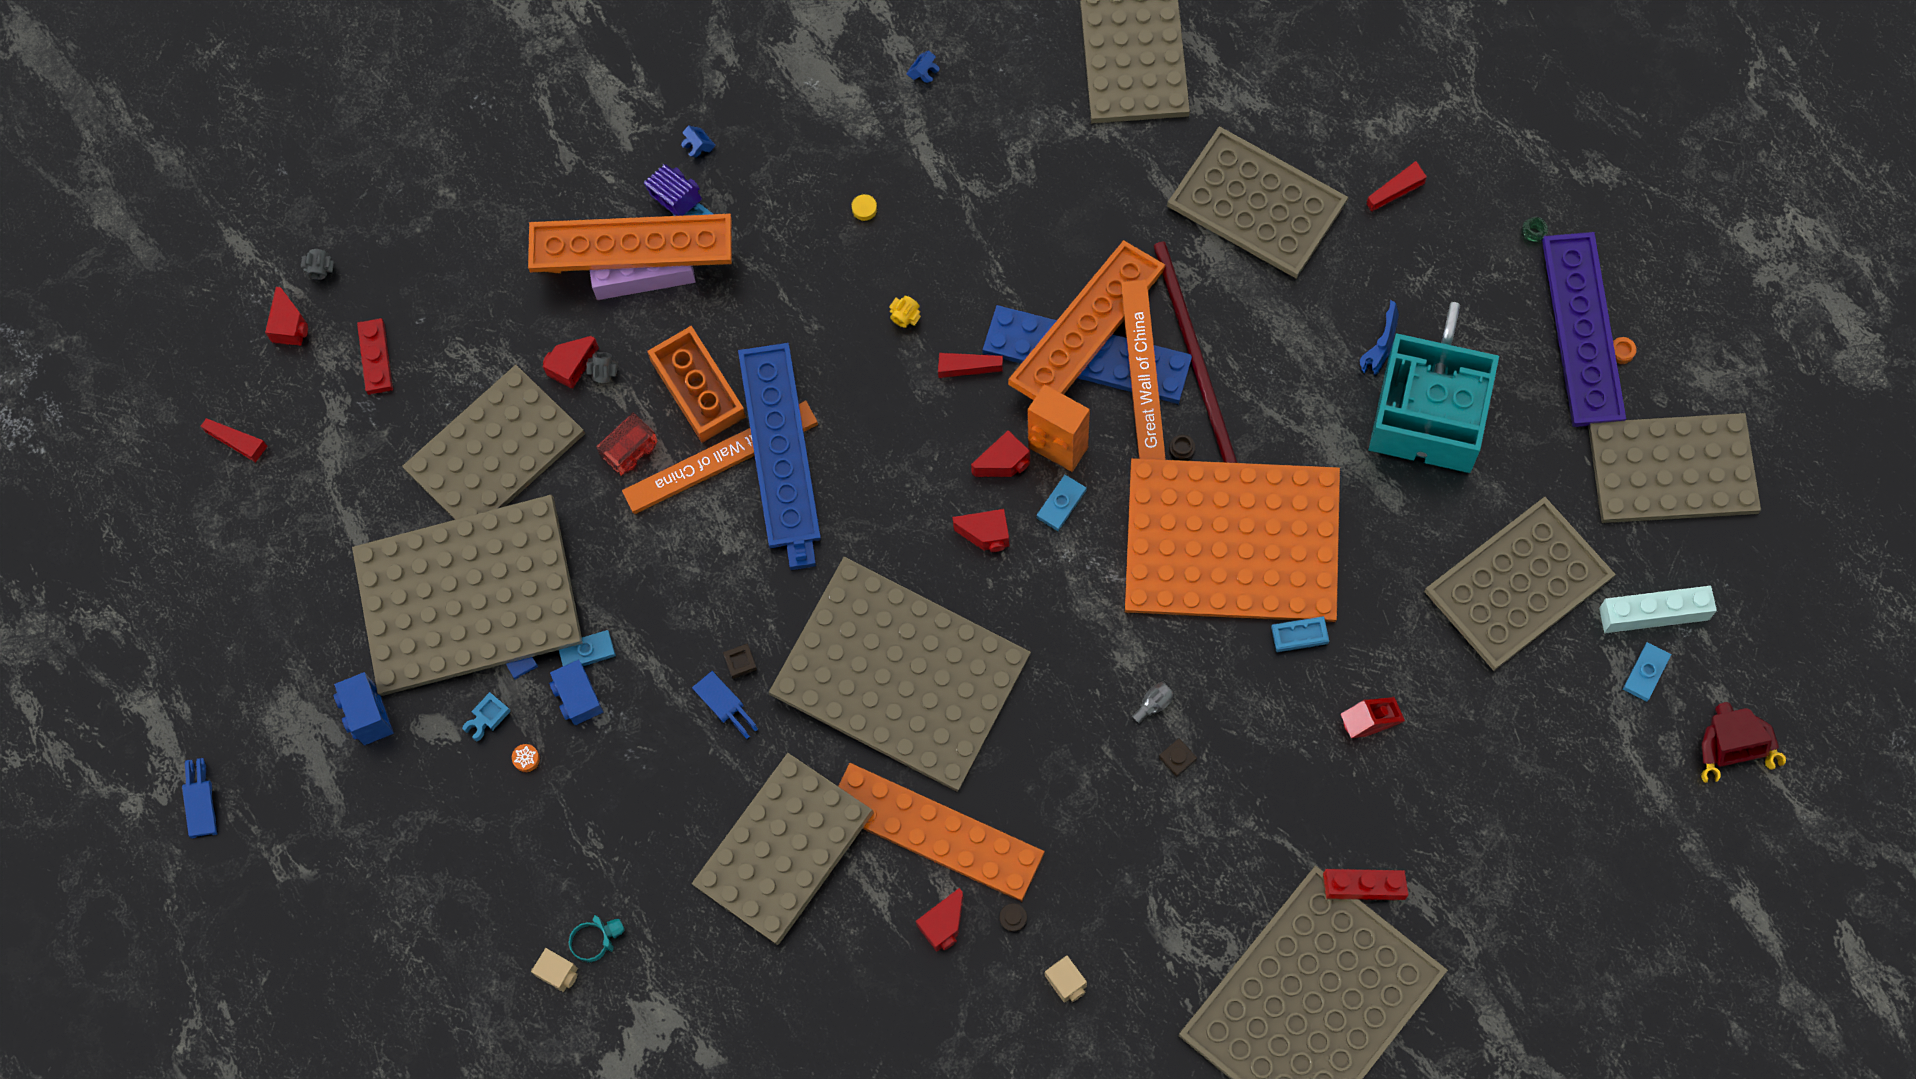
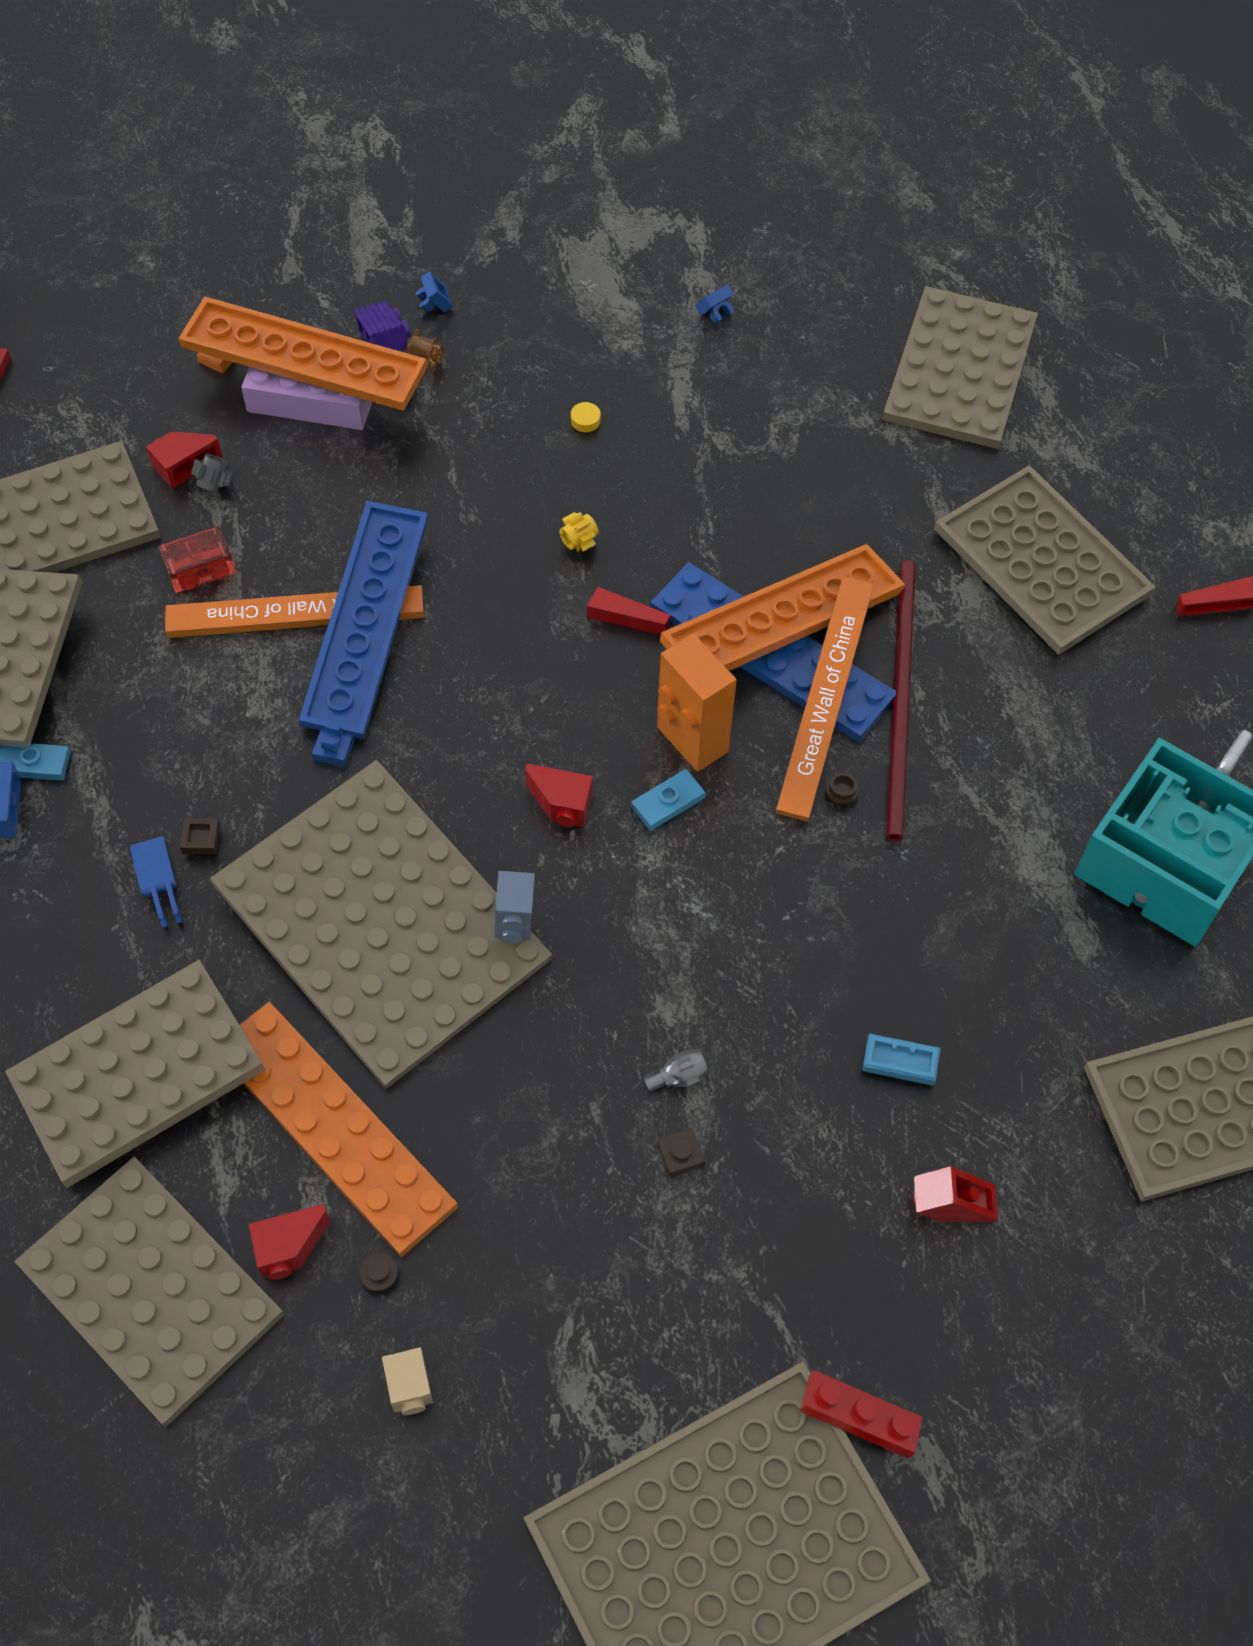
camera: 15 degrees right, 10 degrees down
(696, 384) = (305, 524): orange brick -> none
(714, 195) = (426, 348): none -> clear orange brick
(865, 988) = (149, 1290): none -> dark tan plate
(996, 631) = (514, 906): none -> sand blue brick
(1002, 458) = (617, 724): red slope -> none
(1232, 540) = (861, 917): orange plate -> none
(1380, 352) = (1124, 768): blue arm -> none

